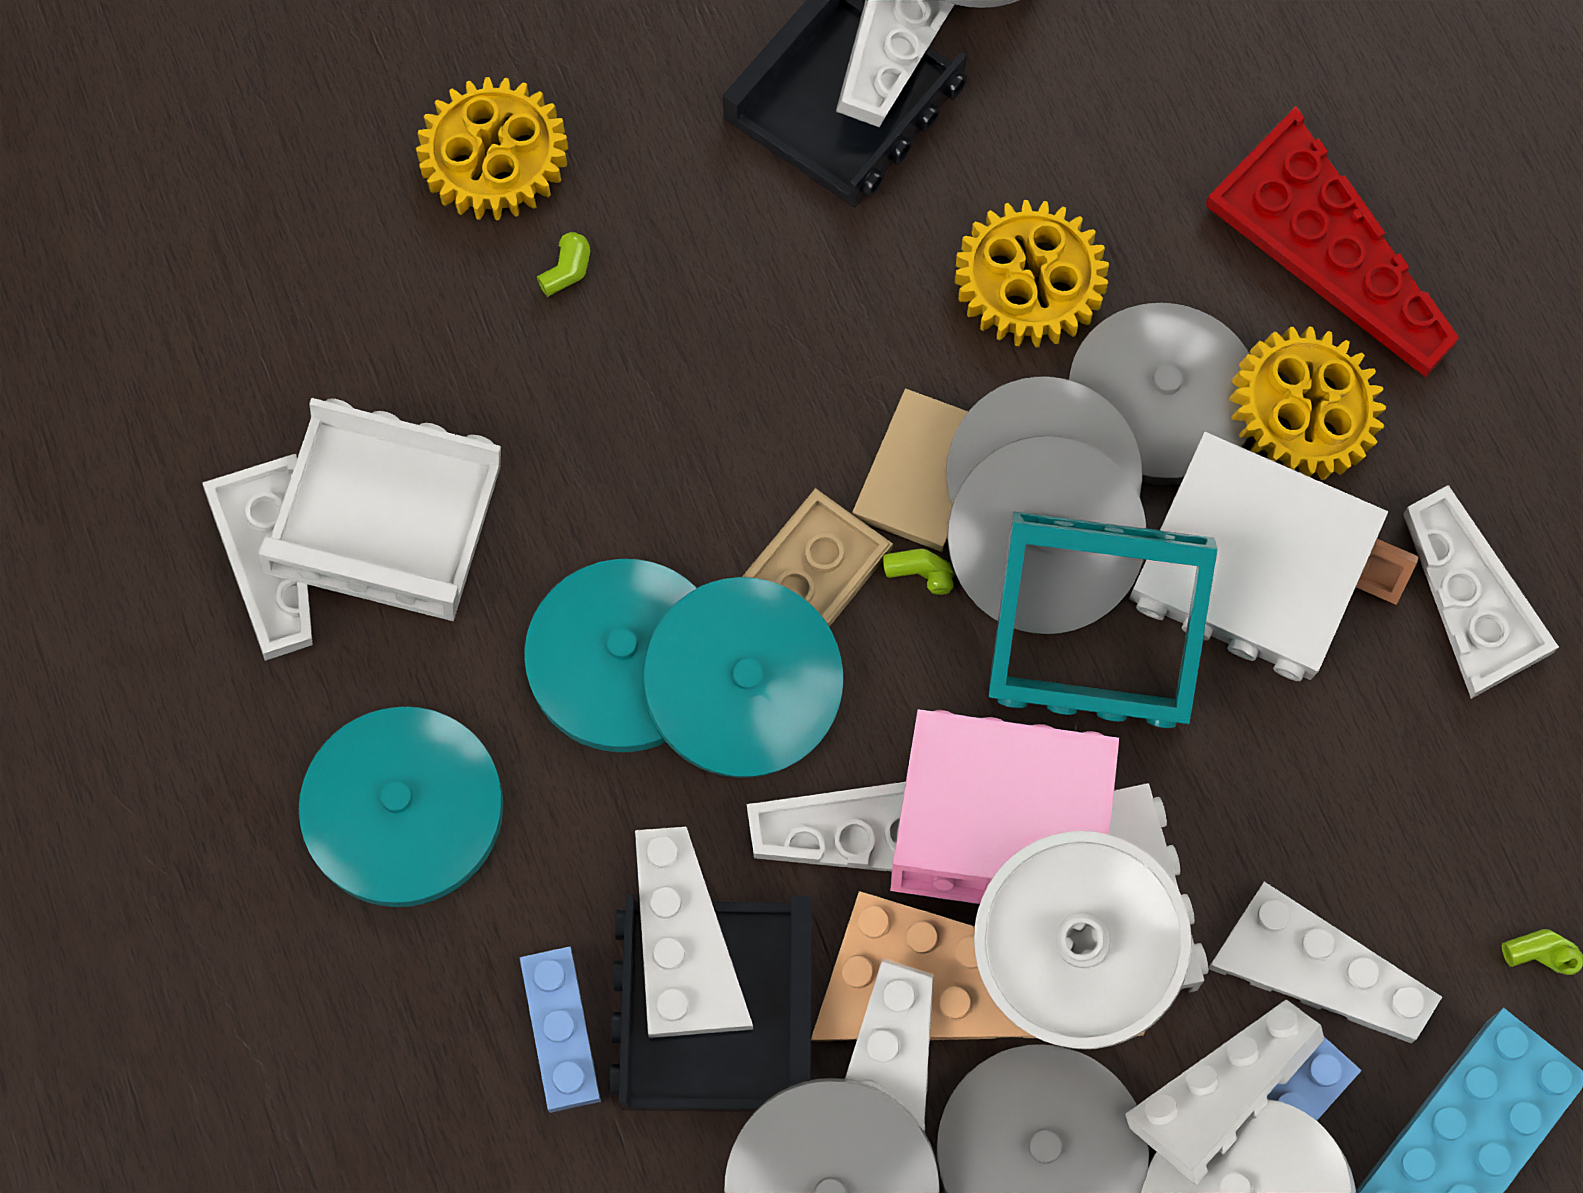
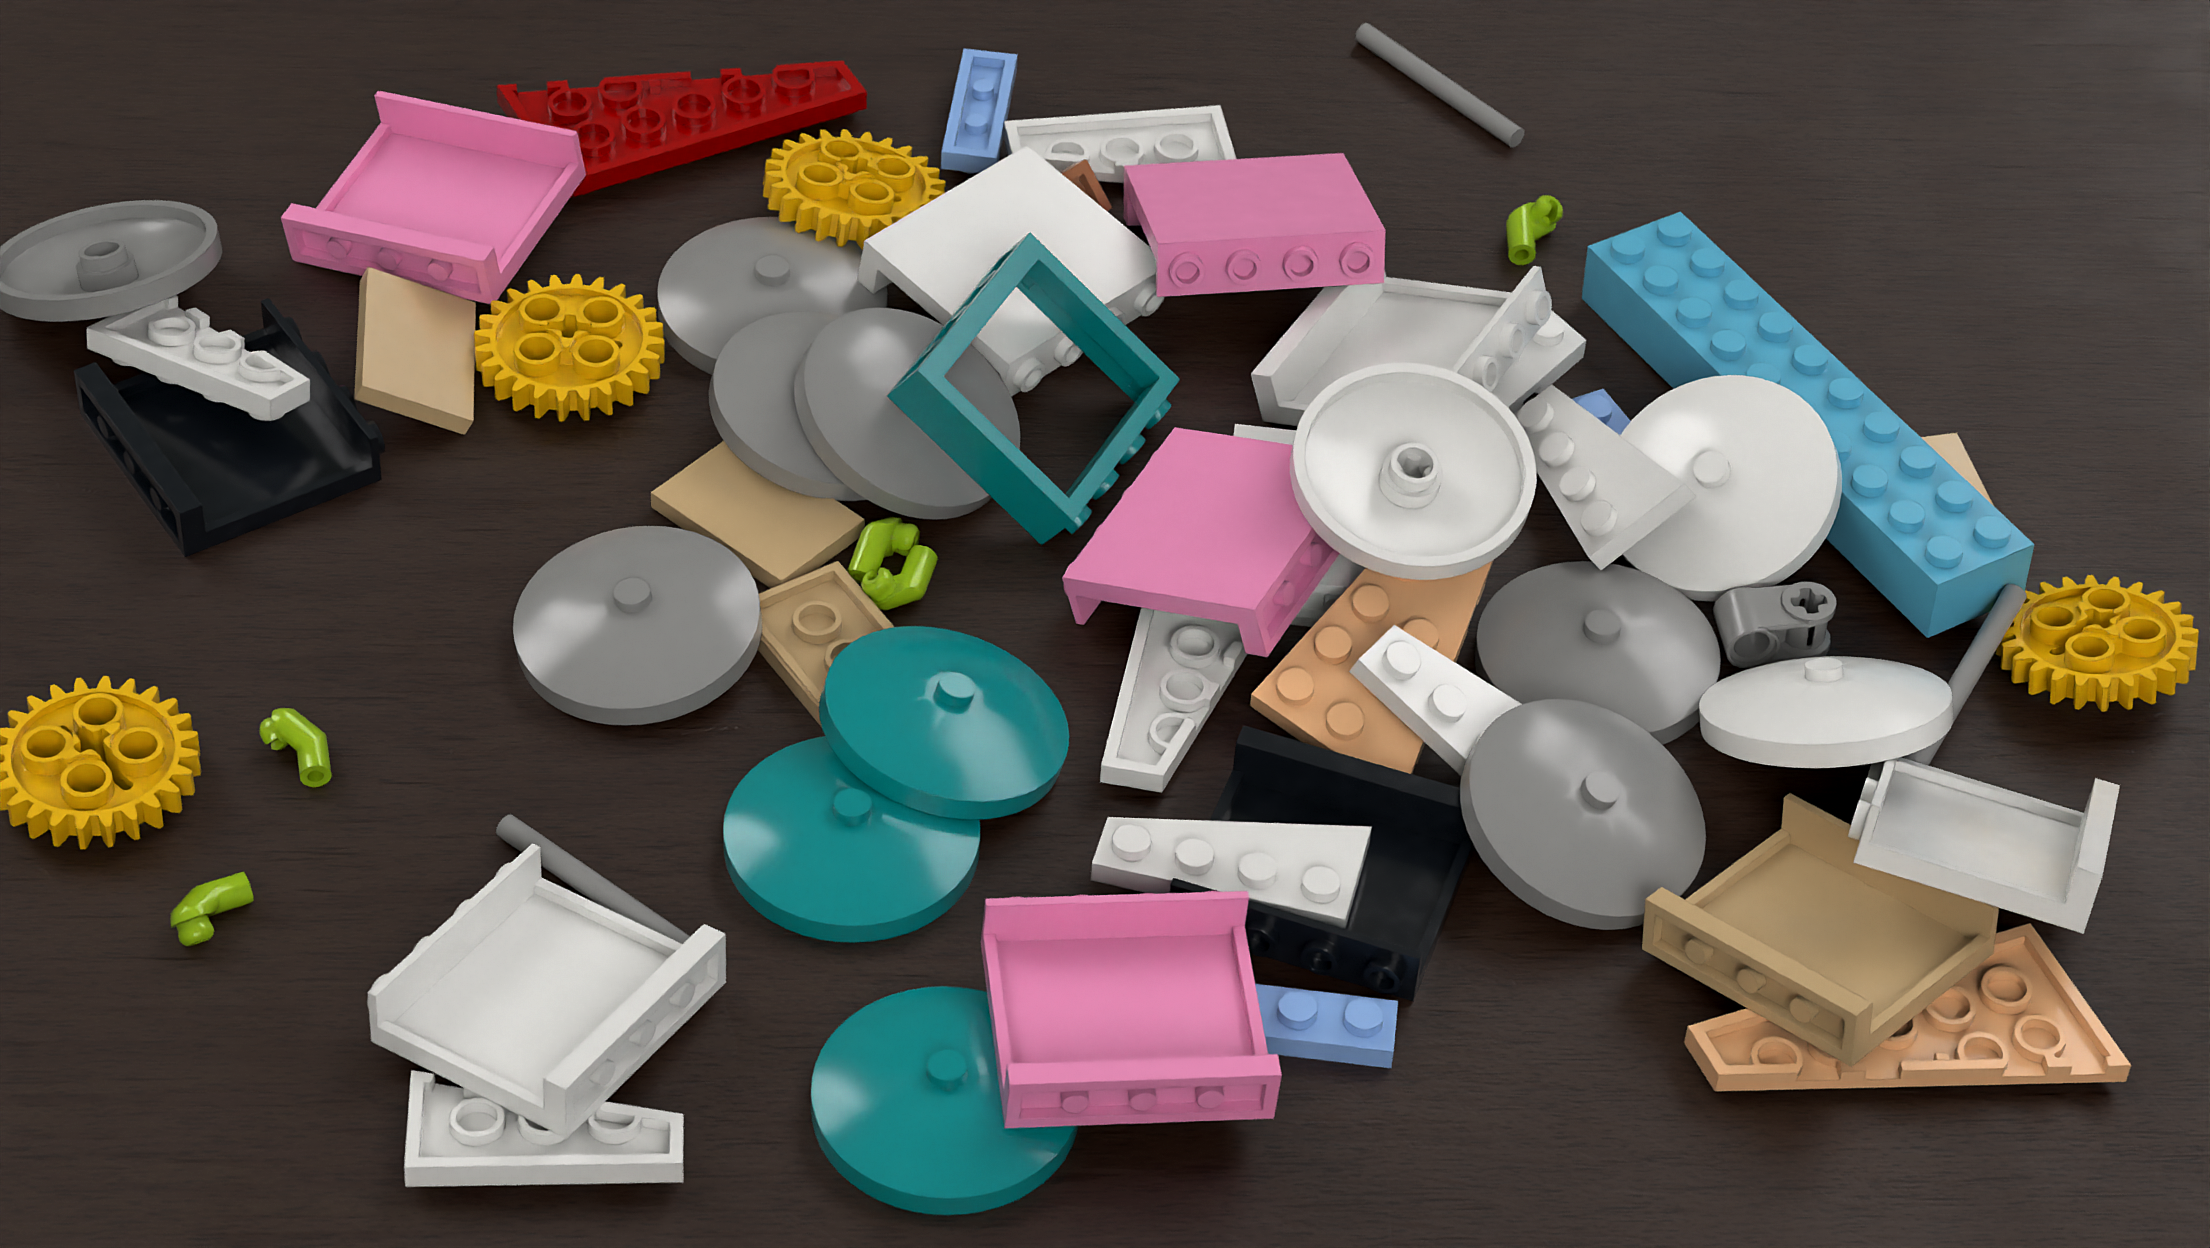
camera: 75 degrees left, 25 degrees down
(398, 266) = (208, 900): none -> lime arm
(488, 905) = (1126, 1010): none -> bright pink panel
(509, 507) = (584, 878): none -> light grey bar
(765, 433) = (637, 625): none -> light grey dish
(888, 599) = (908, 586): none -> lime arm
(972, 172) = (415, 351): none -> tan tile
(1141, 124) = (441, 198): none -> bright pink panel
(1305, 889) = (1398, 322): none -> white panel
(1398, 719) = (1255, 224): none -> bright pink panel
(1459, 462) = (978, 111): none -> light blue plate

